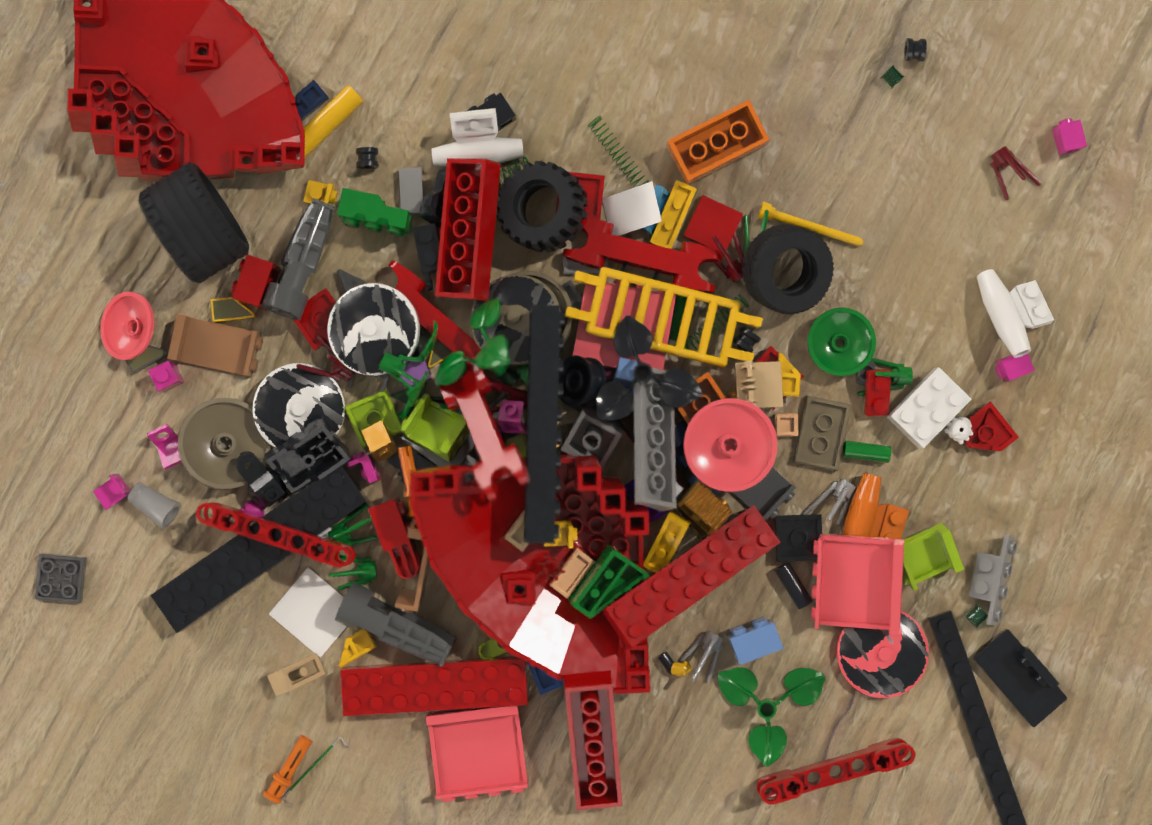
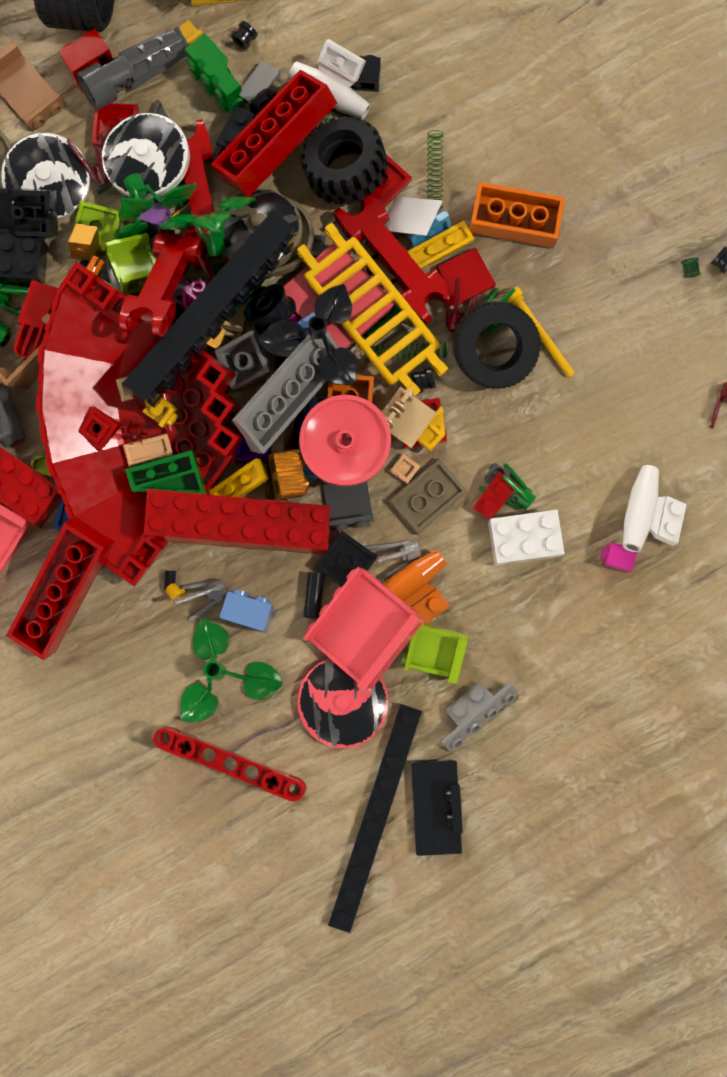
camera: 40 degrees right, 5 degrees down
(229, 309) = (55, 70): olive tile -> none
(369, 470) = (61, 261): dark pink bracket -> none
(857, 340) = (503, 421): green dish -> none
(867, 451) = (451, 536): green piece -> none
(954, 432) = (535, 578): white animal -> none
(976, 616) = (438, 730): clear green axle -> none
(989, 430) = (558, 590): red plate -> none

